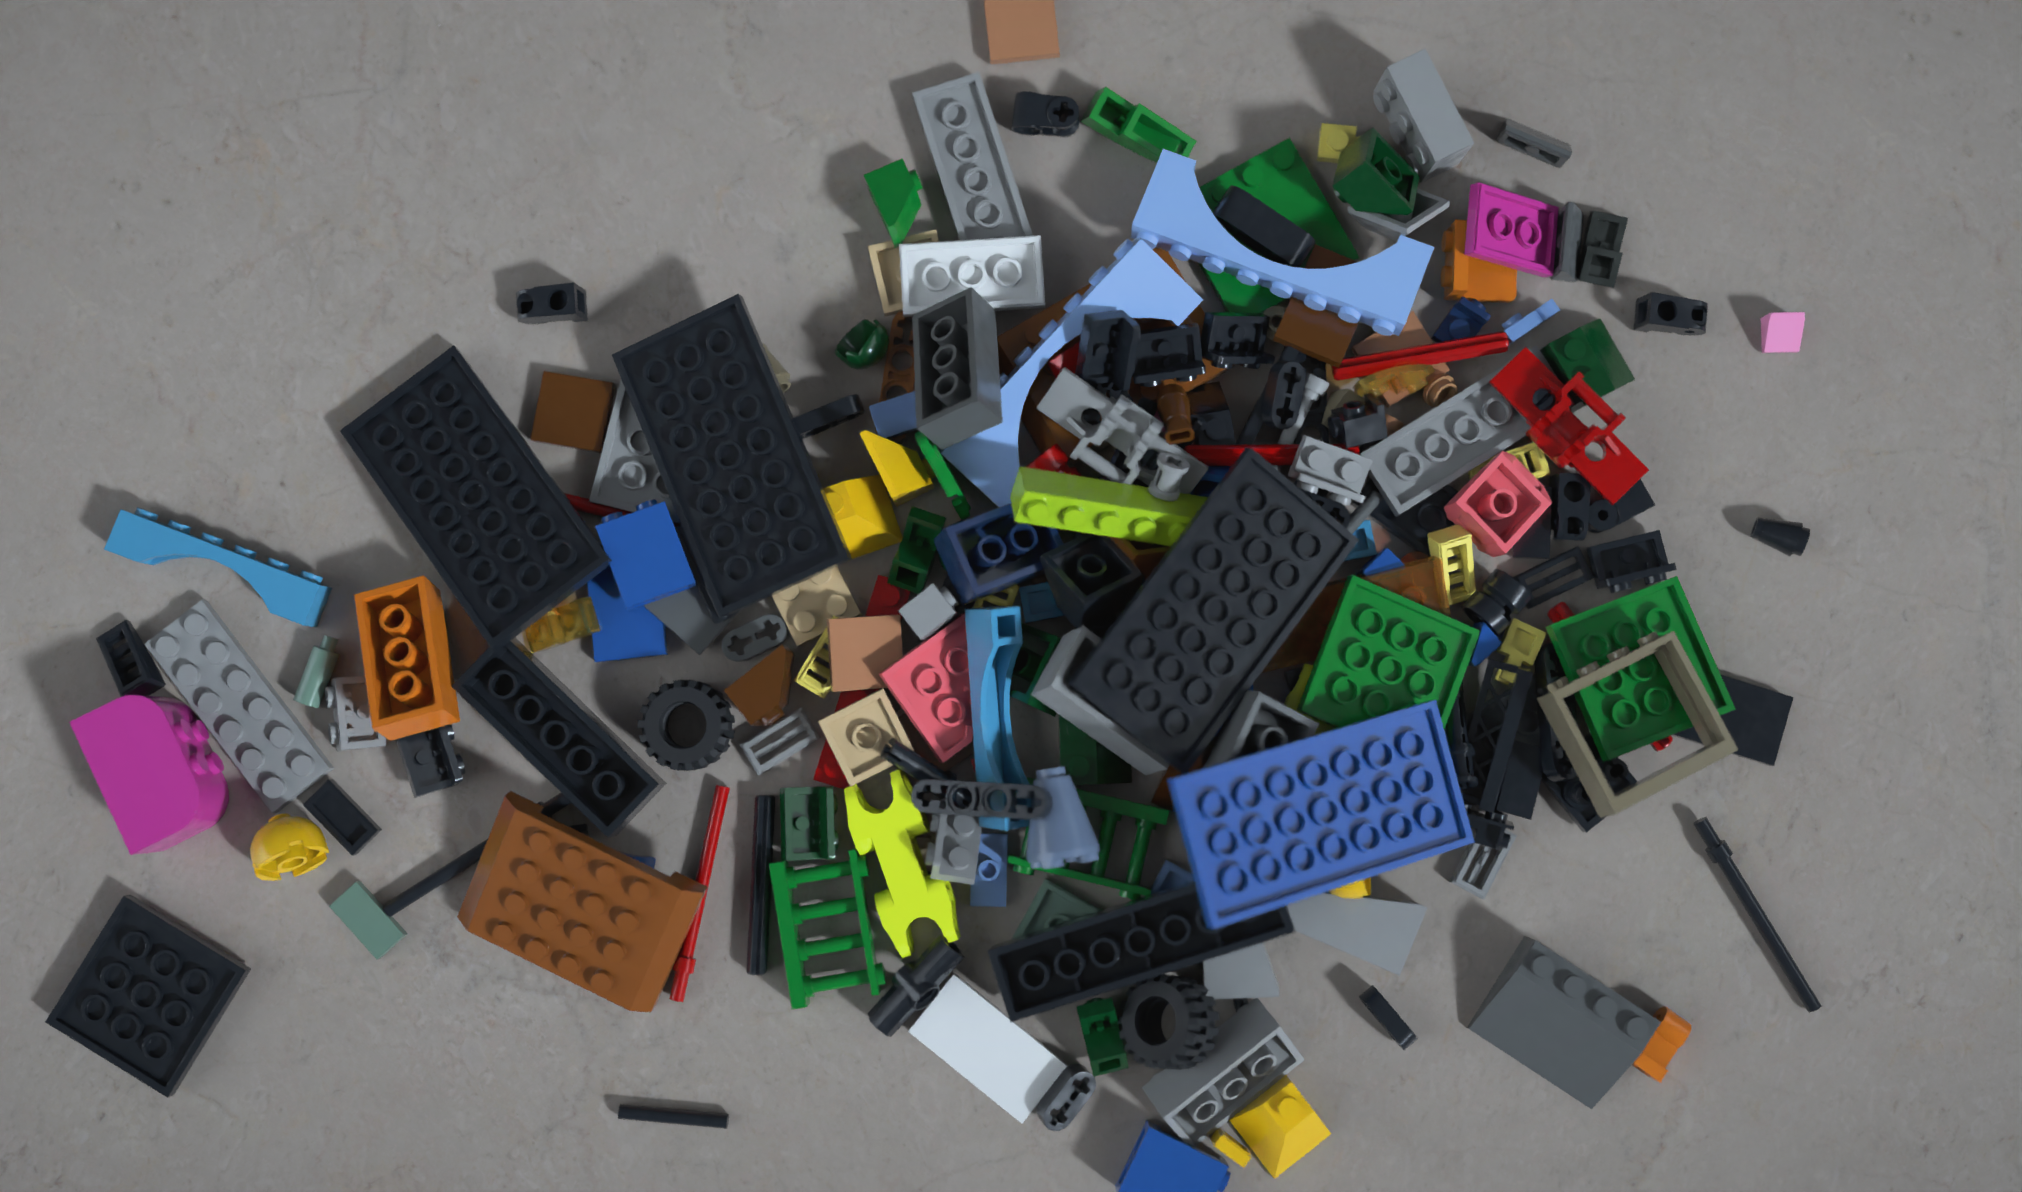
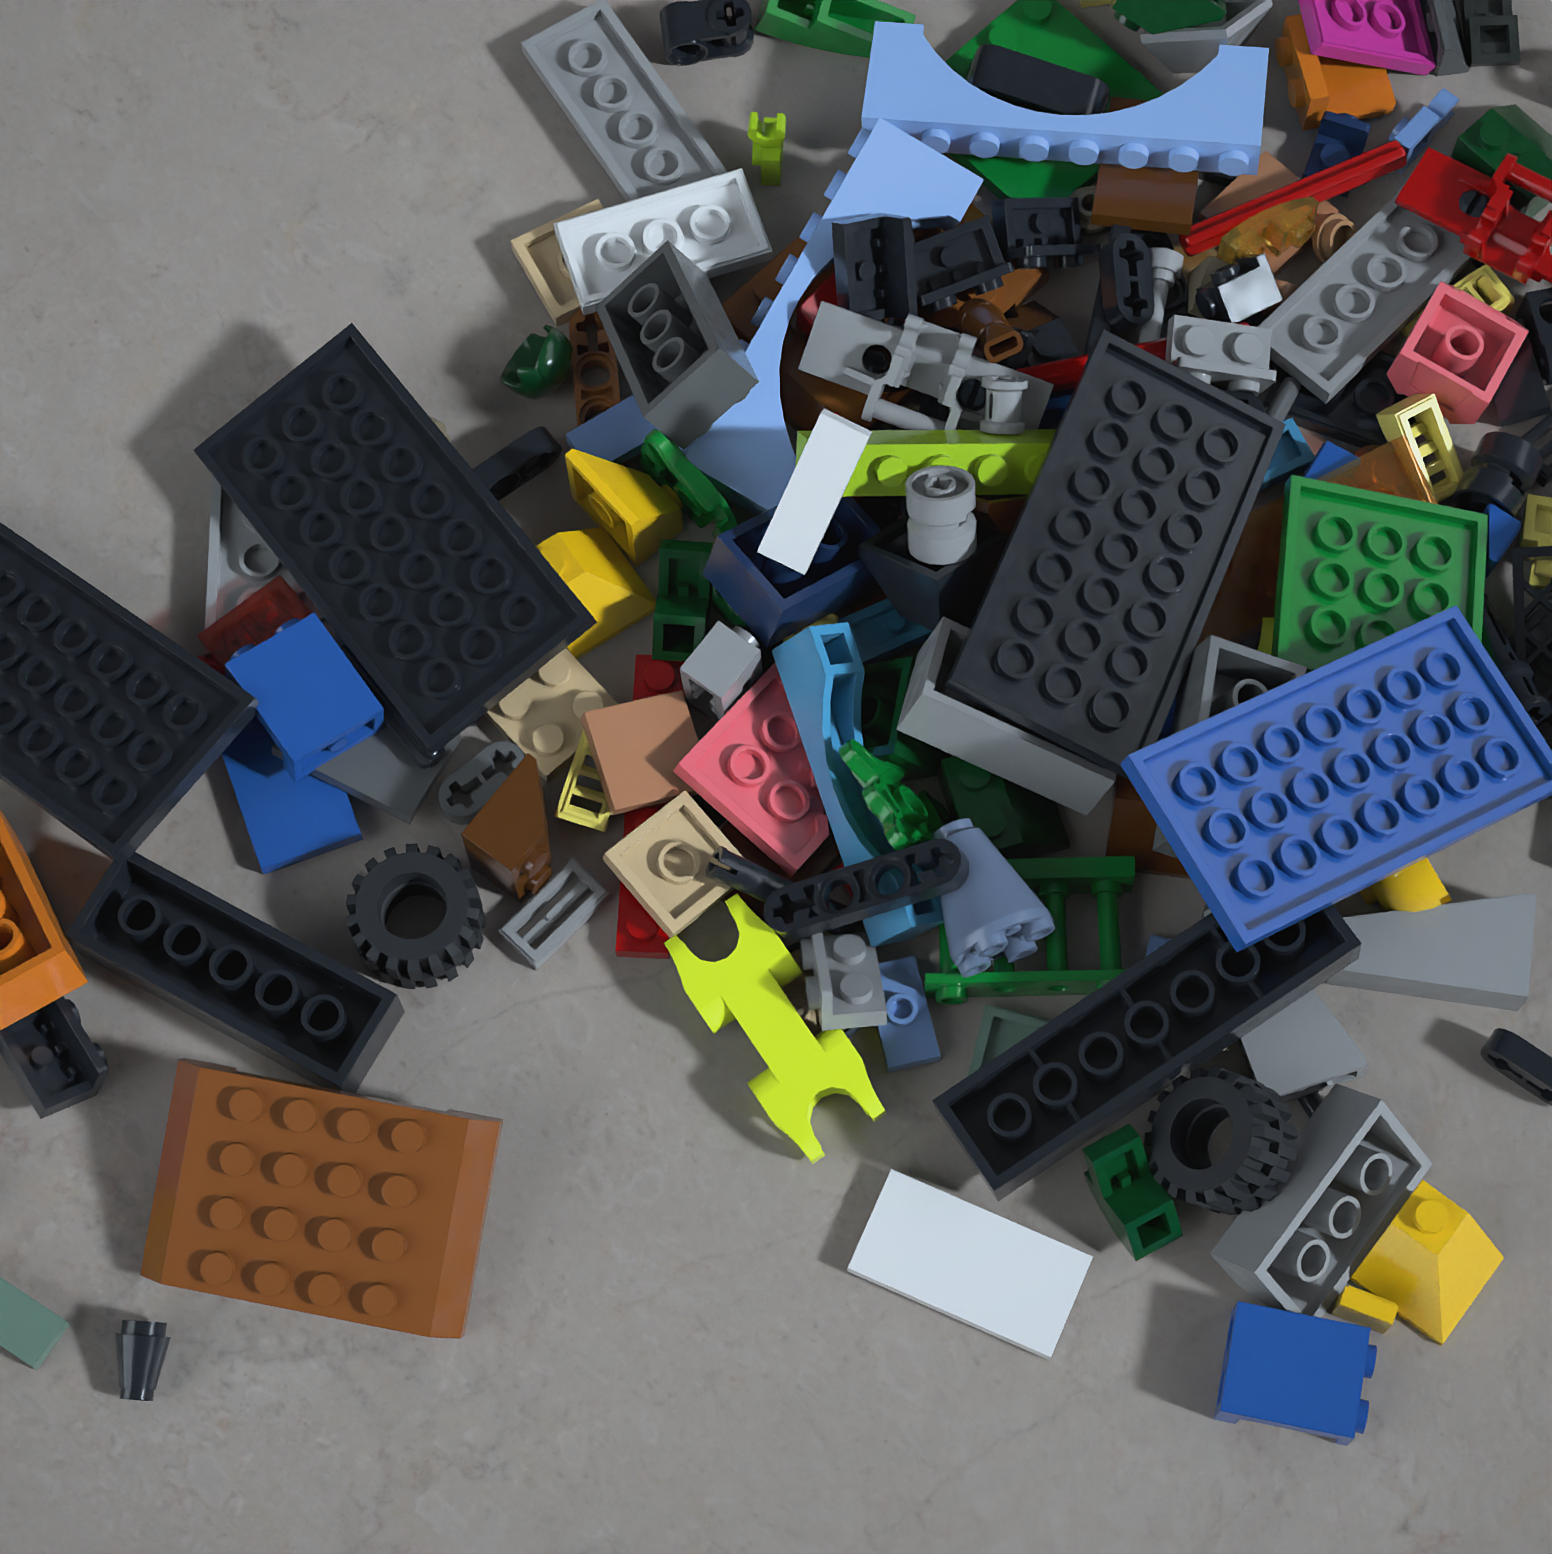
camera: 15 degrees left, 15 degrees down
(446, 970) = (140, 1358): none -> black cone
(457, 865) = (111, 1217): black bar -> none
(552, 304) = (91, 415): black leg -> none
(563, 625) = (205, 831): clear yellow slope -> none
(572, 412) = (153, 549): reddish brown tile -> none
(627, 490) = (253, 620): none -> clear red tile
(673, 1116) = (530, 1485): black bar -> none
(685, 962) = (493, 1253): red bar -> none
(760, 885) = (577, 1118): black axle -> none
(798, 950) = (657, 1190): green fence -> none
(808, 823) = (625, 1010): dark green bracket -> none
(895, 197) = (531, 171): green slope -> none
(915, 985) = (840, 1195): black piece -> none
(1016, 522) = (814, 491): none -> white tile
(1021, 738) = (904, 815): none -> green tile
(1064, 220) = (767, 146): none -> lime plate
(1066, 1097) = (1105, 1301): black beam -> none
(1100, 556) = (940, 514): none -> light grey wheel

